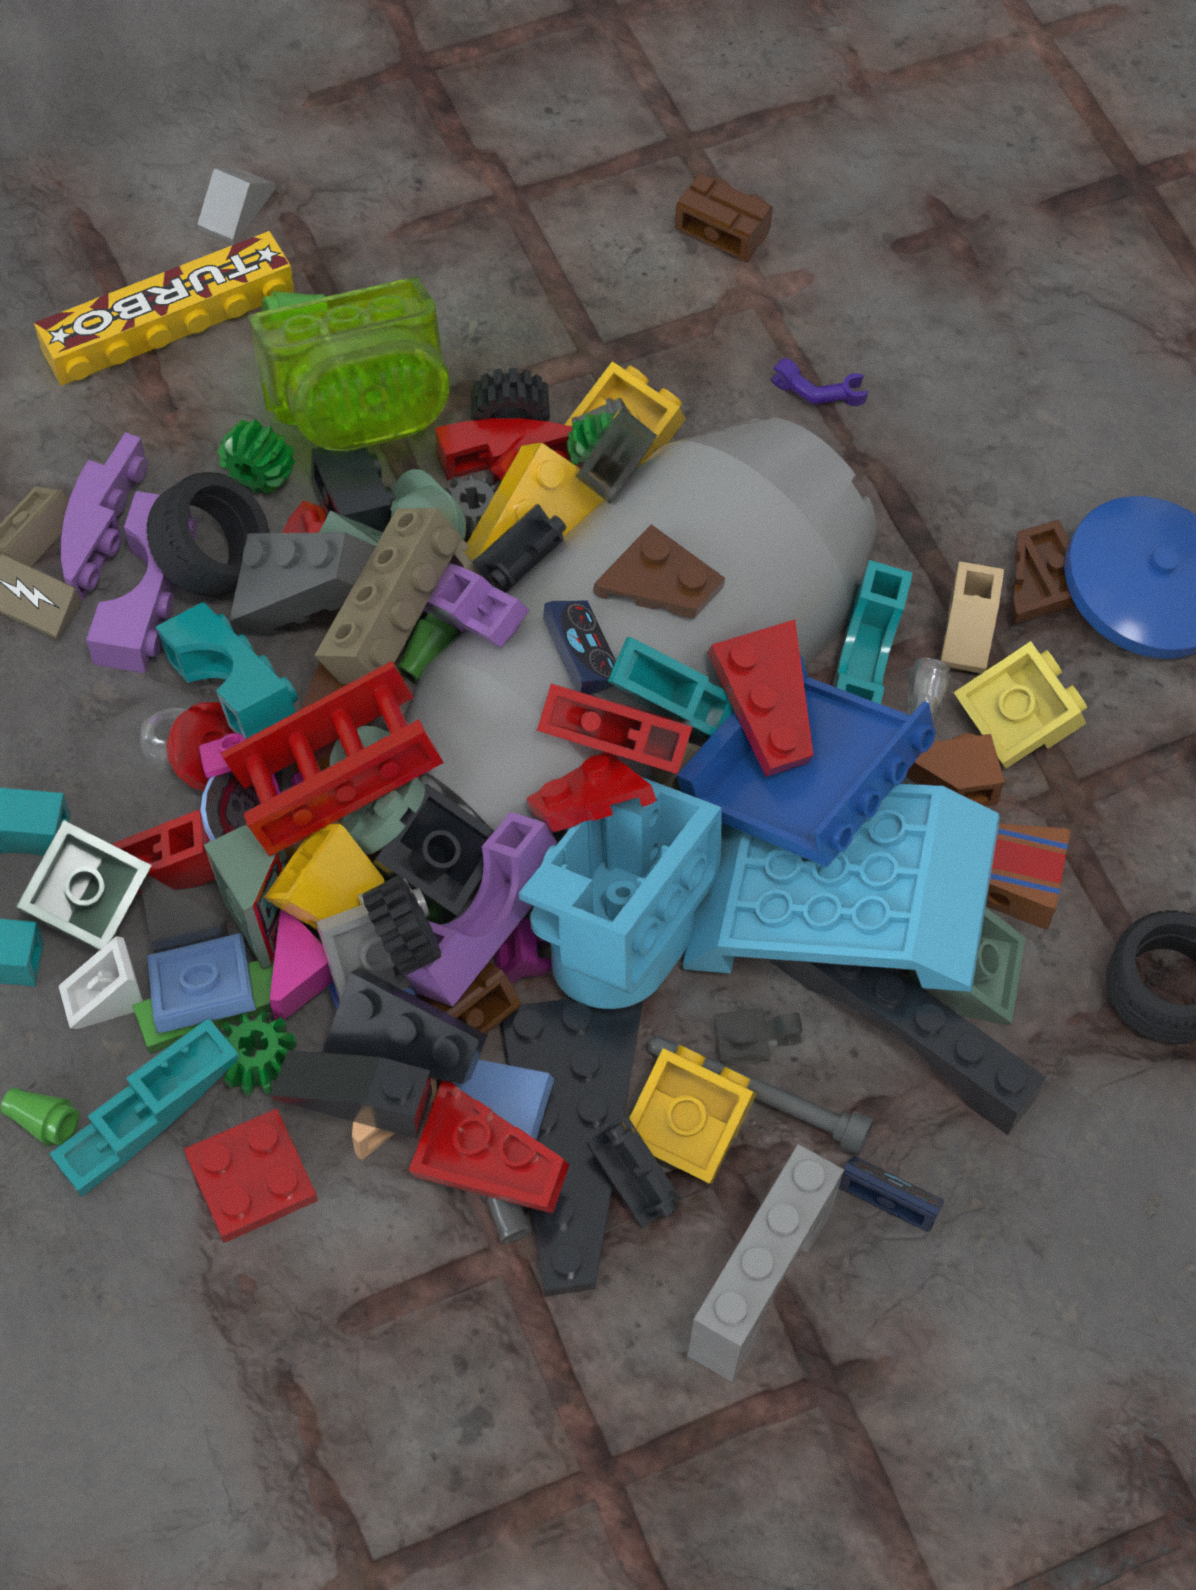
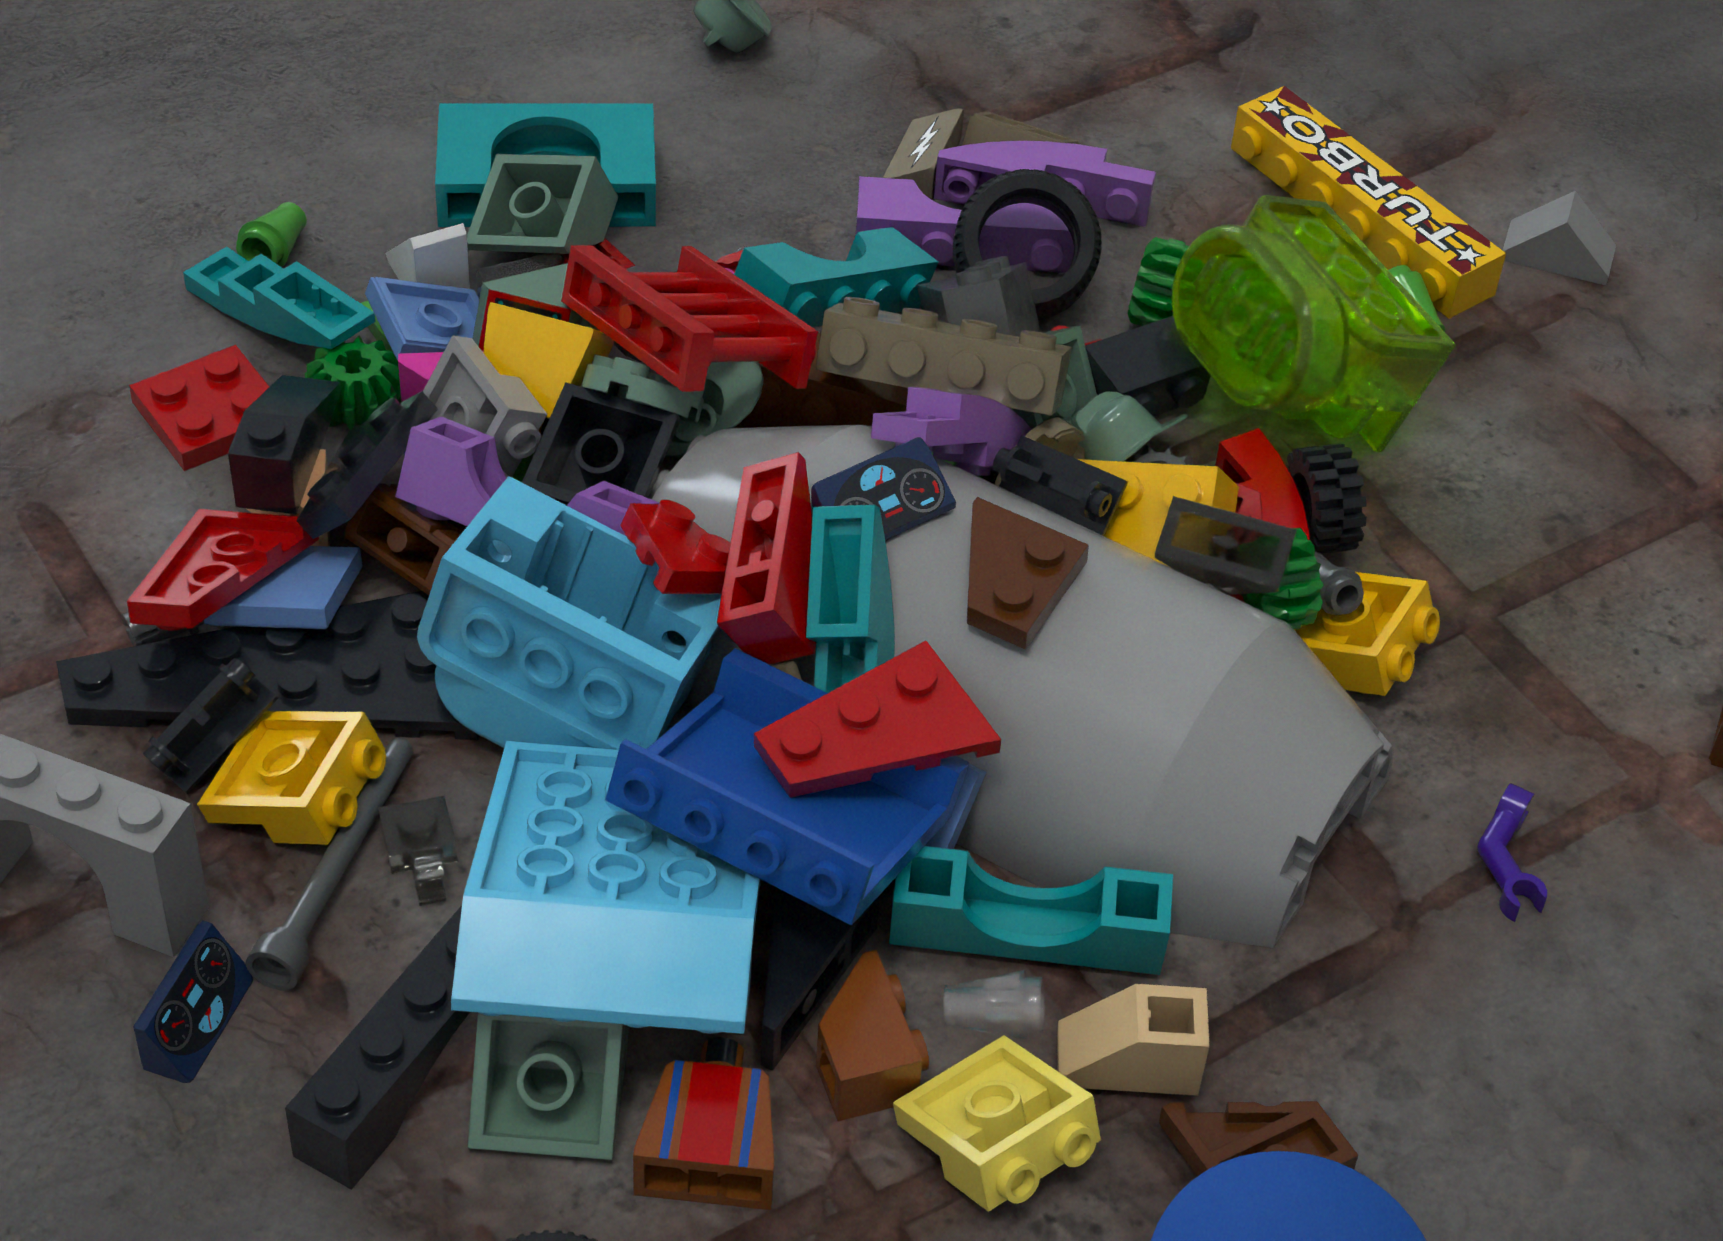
camera: 80 degrees right, 15 degrees down
(401, 925) = (428, 354): black tyre -> none

